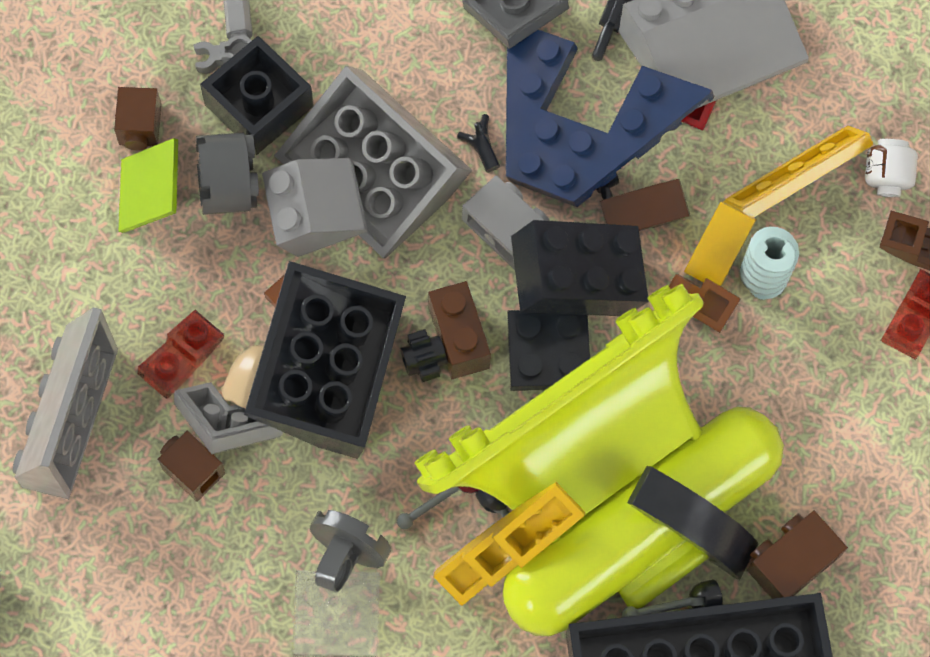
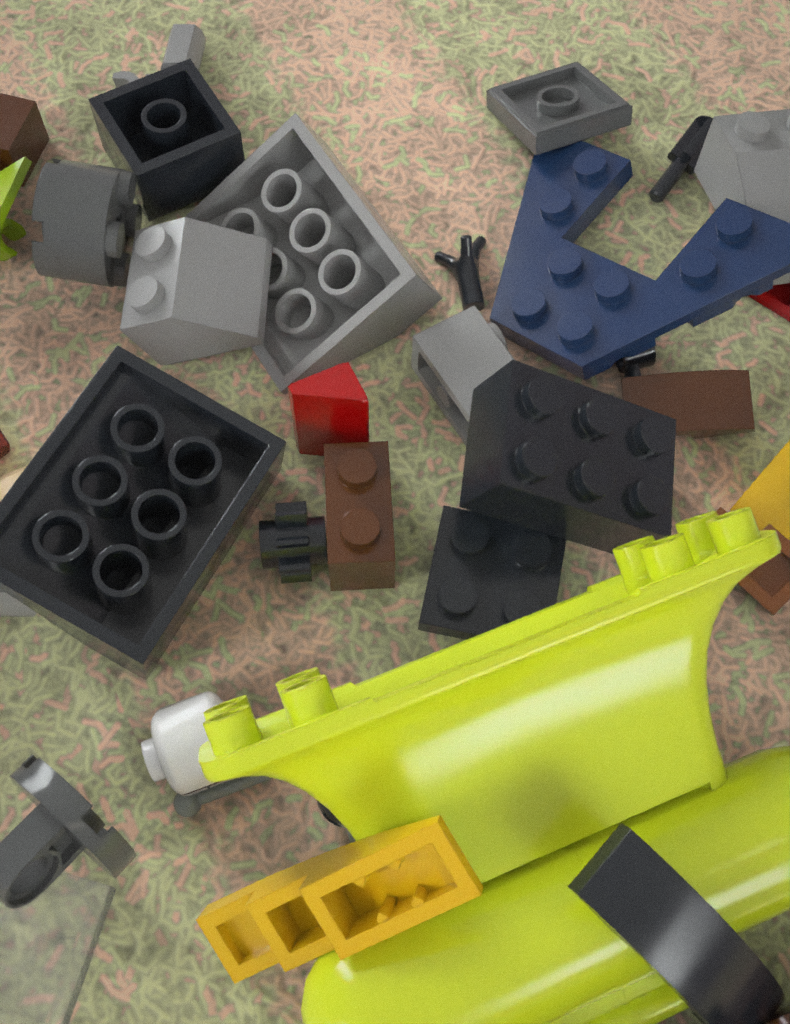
camera: 15 degrees right, 5 degrees down
(399, 487) = (175, 744): none -> white head
(427, 270) = (328, 409): none -> red slope

